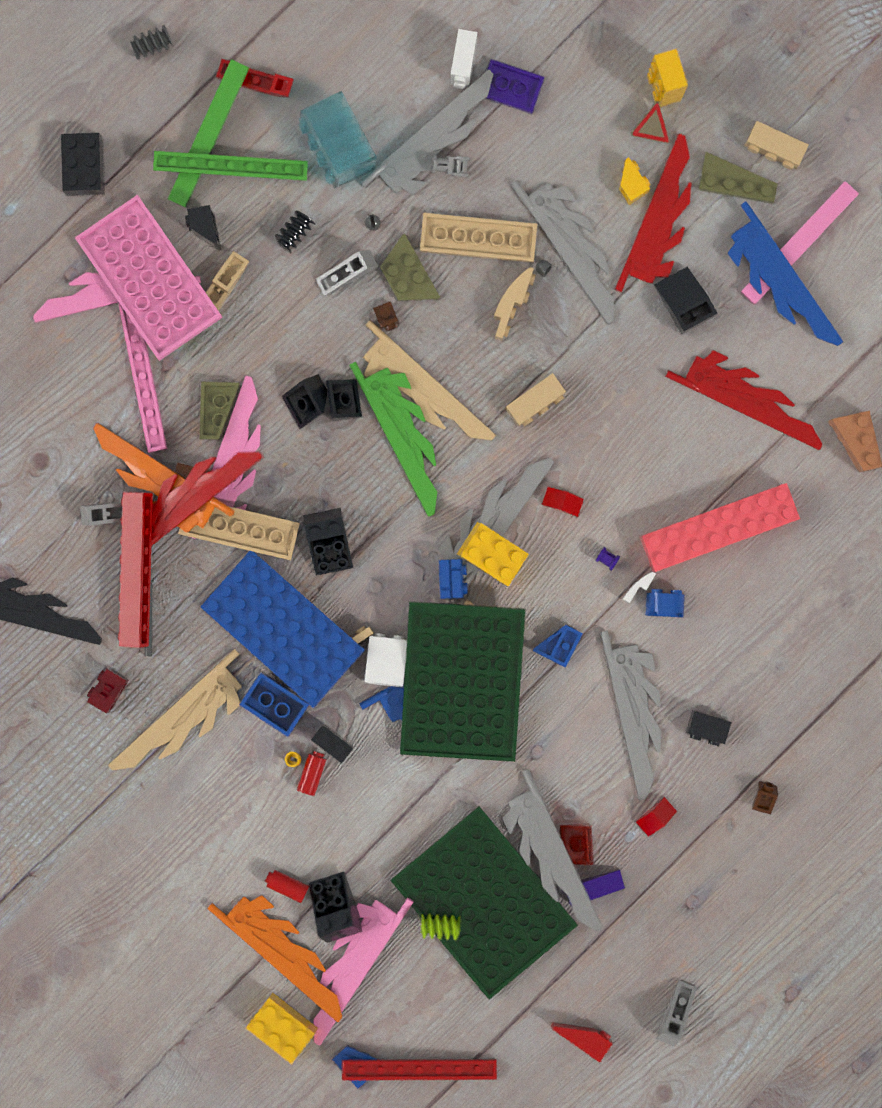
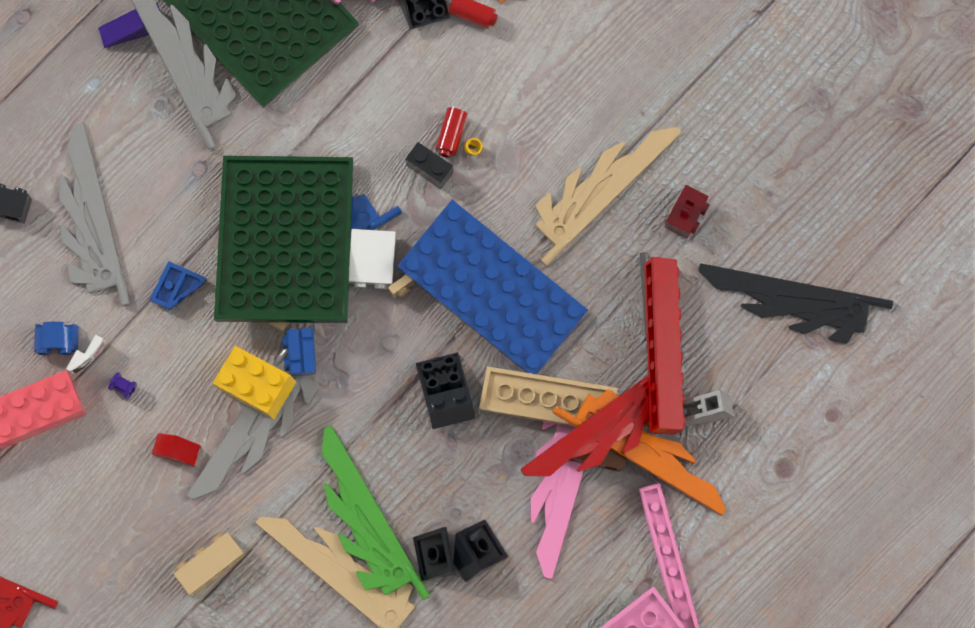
camera: 175 degrees right, 10 degrees down
(215, 407) = (584, 538): olive wing -> none
(274, 704) = (497, 204): blue brick -> none
(578, 842) = (150, 72): clear red slope -> none
(656, 817) = (62, 104): red slope -> none

